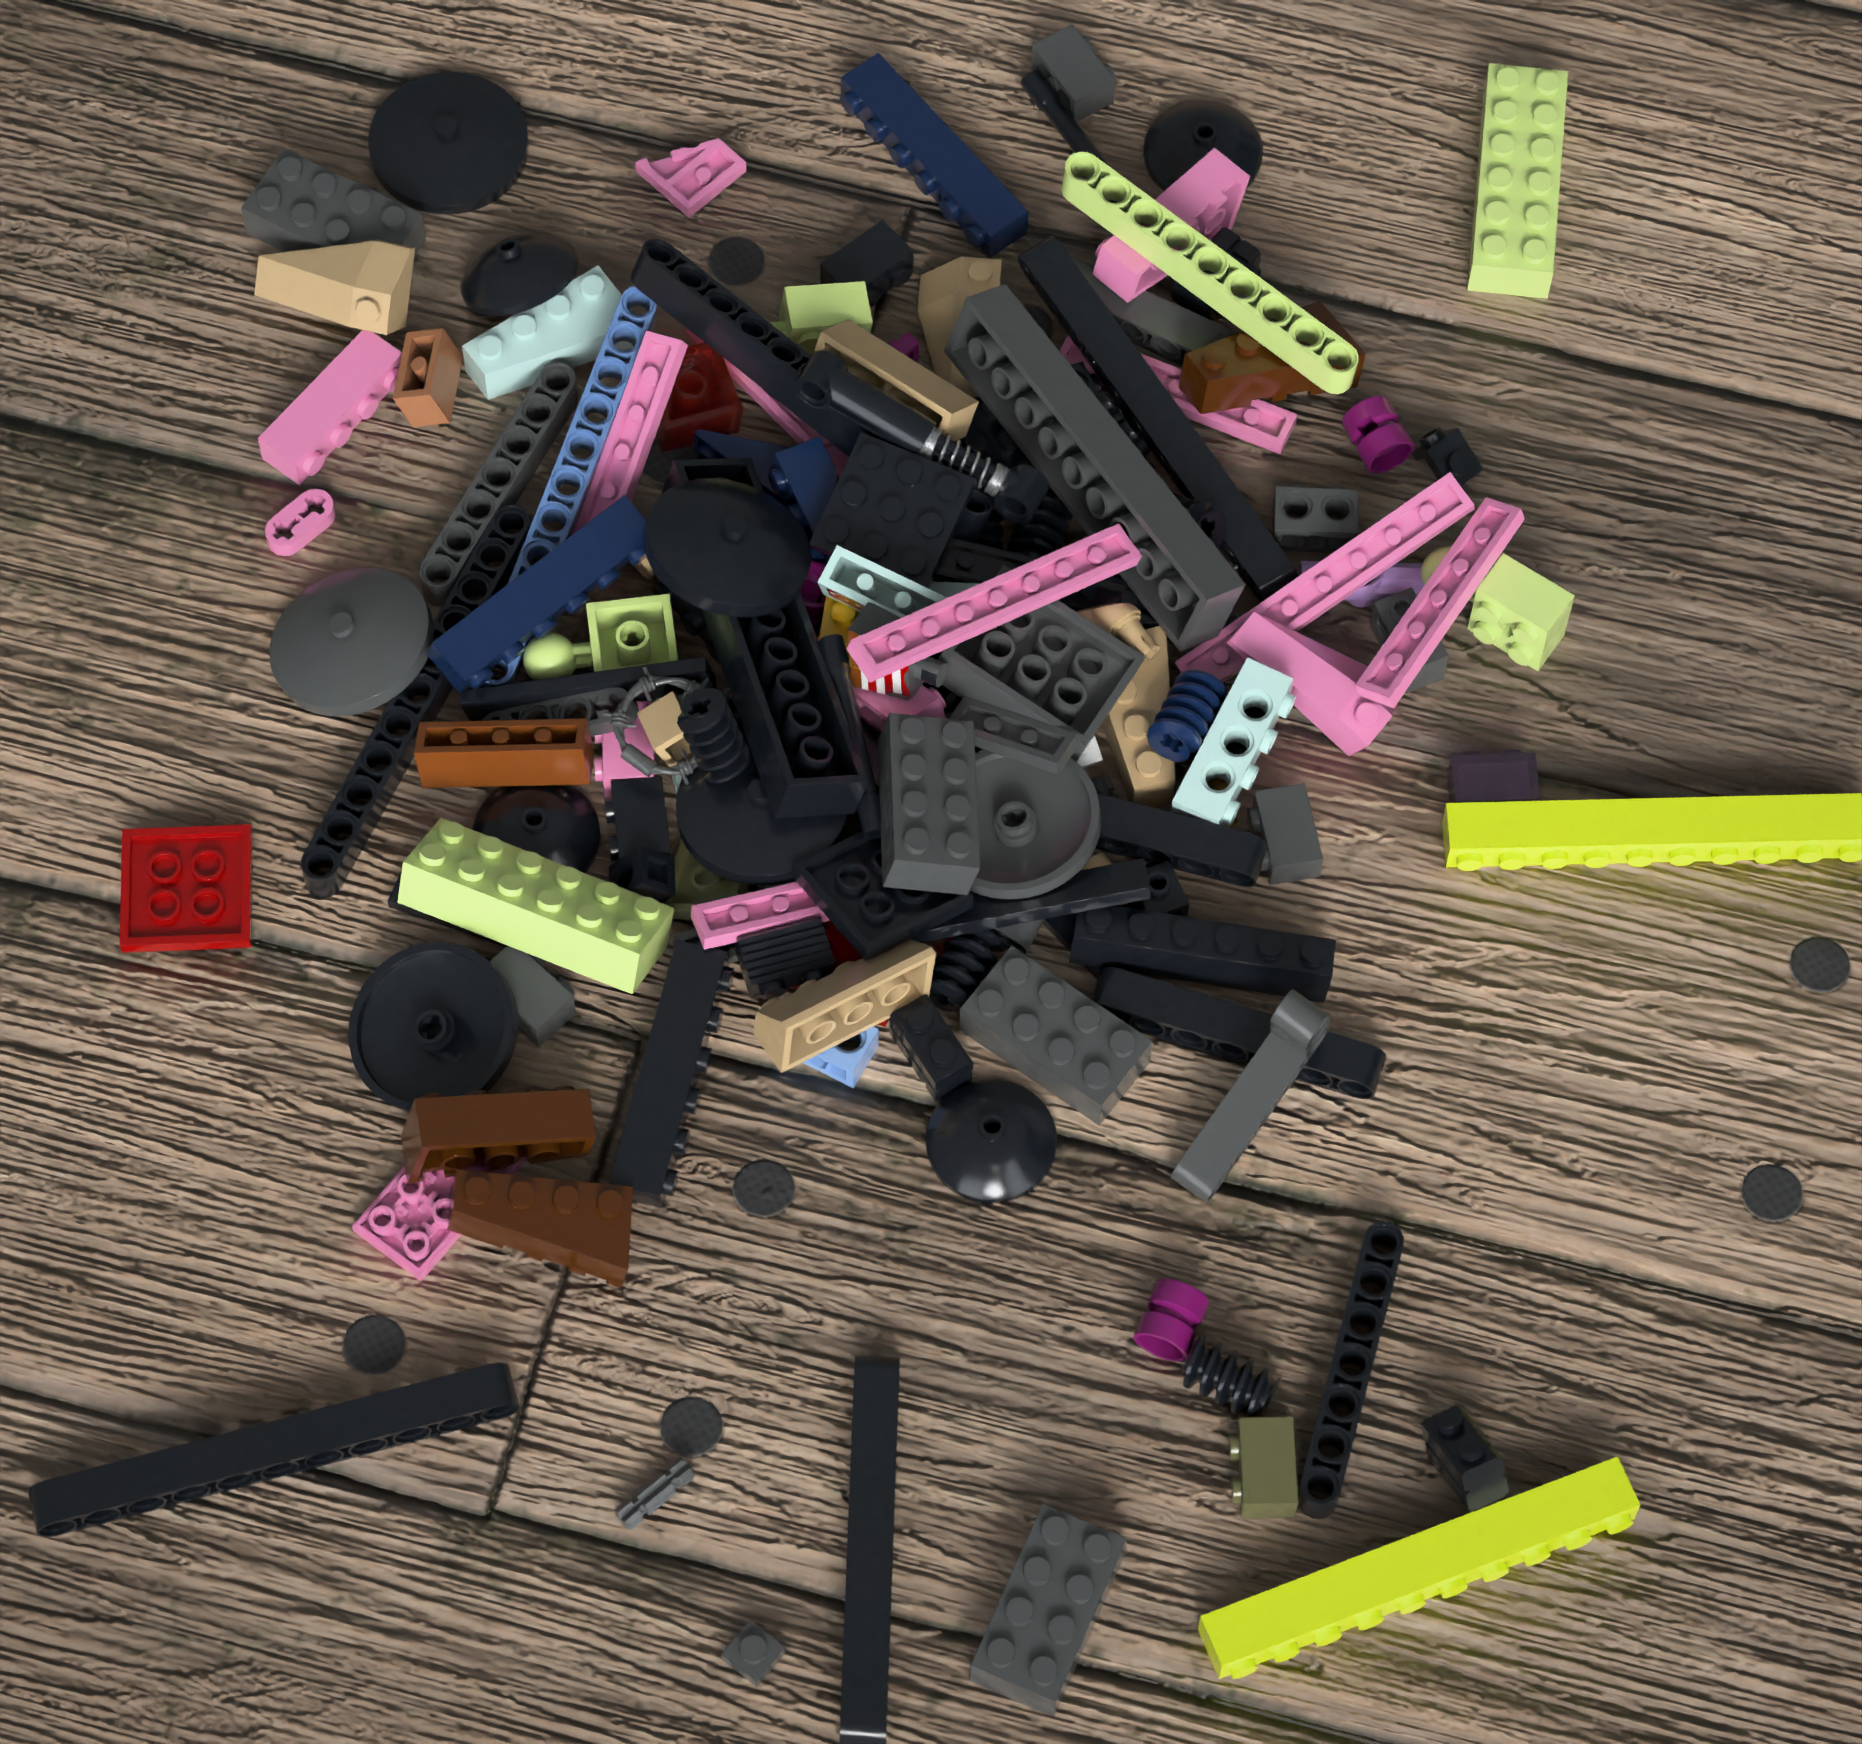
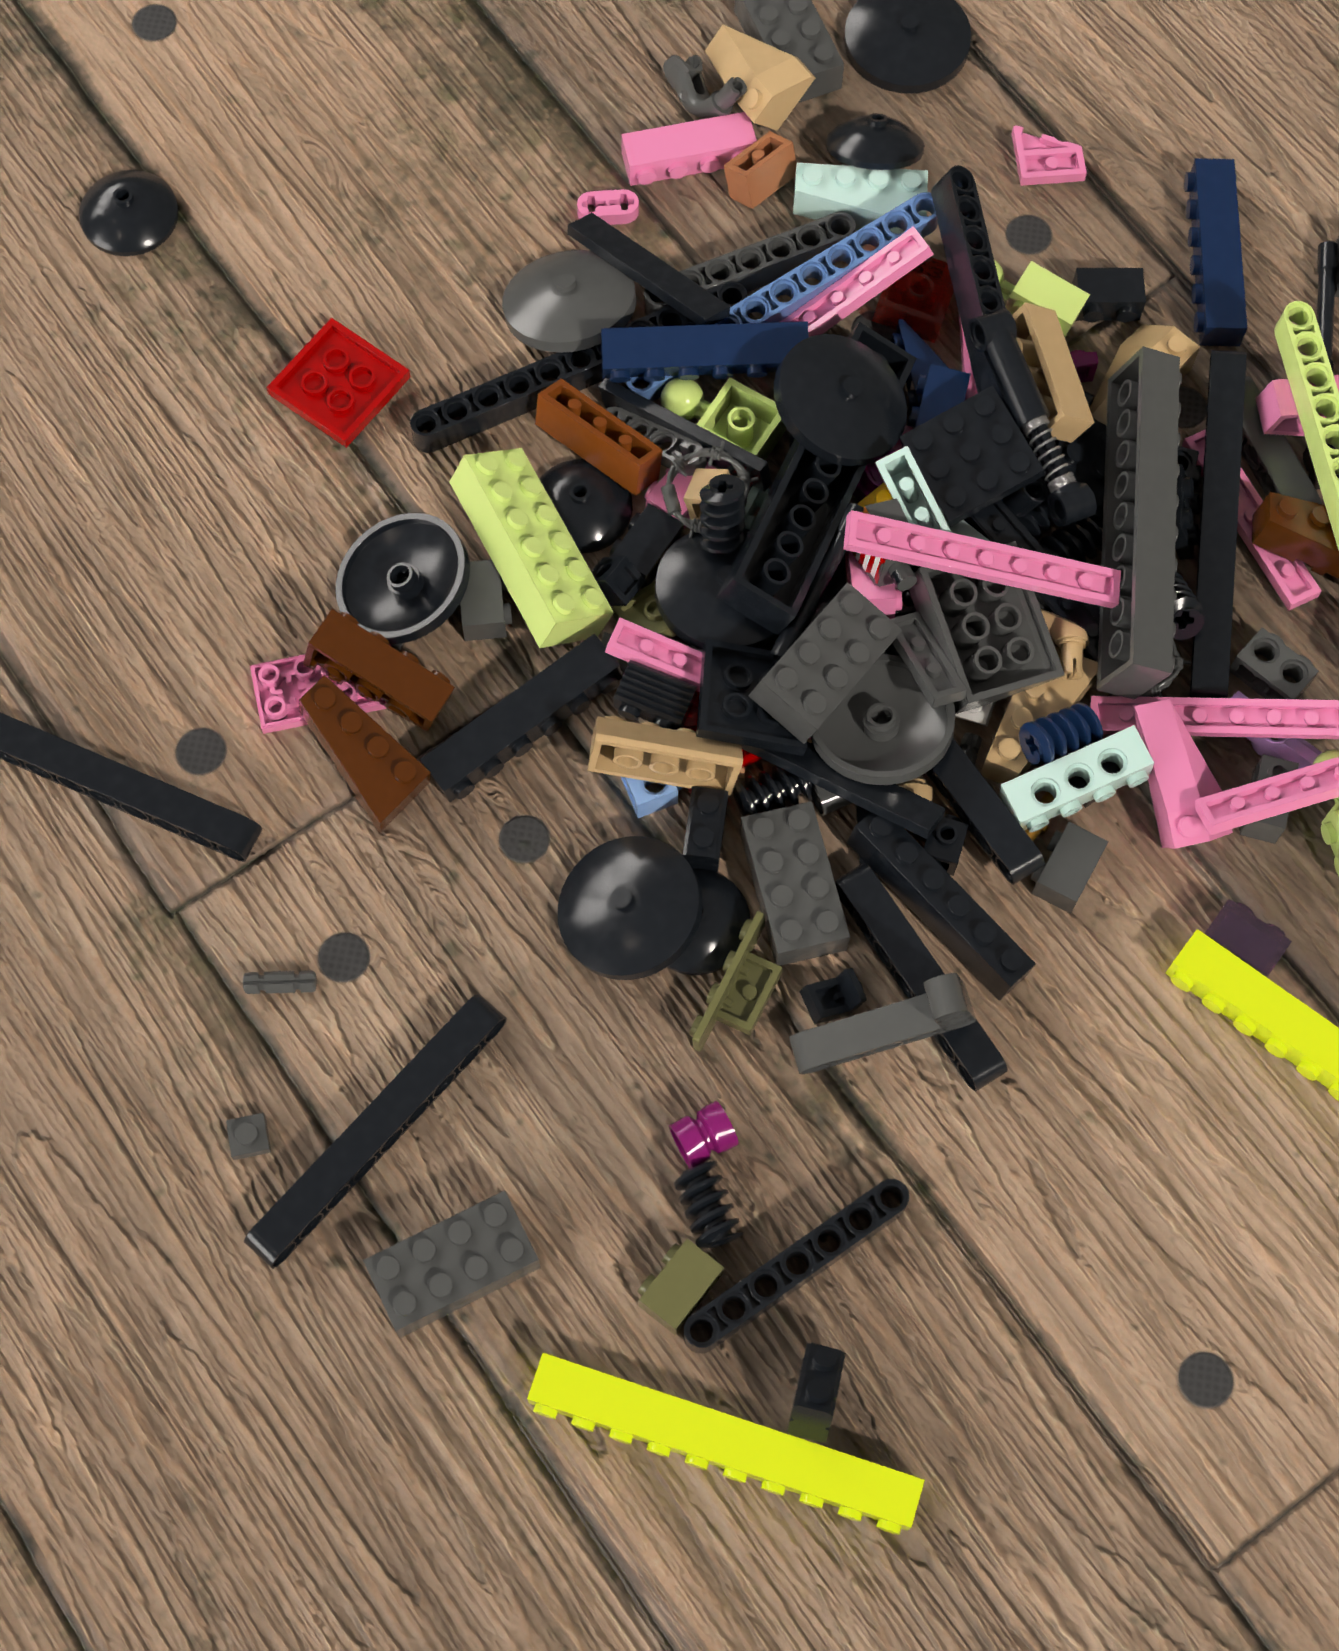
camera: 40 degrees right, 5 degrees up
(279, 343) = (692, 91): none -> dark grey piece
(410, 555) = (648, 270): none -> black tile
(926, 1170) = (630, 908): none -> black dish
(1094, 1164) = (743, 990): none -> olive bracket
(1179, 1108) = (833, 997): none -> black bracket

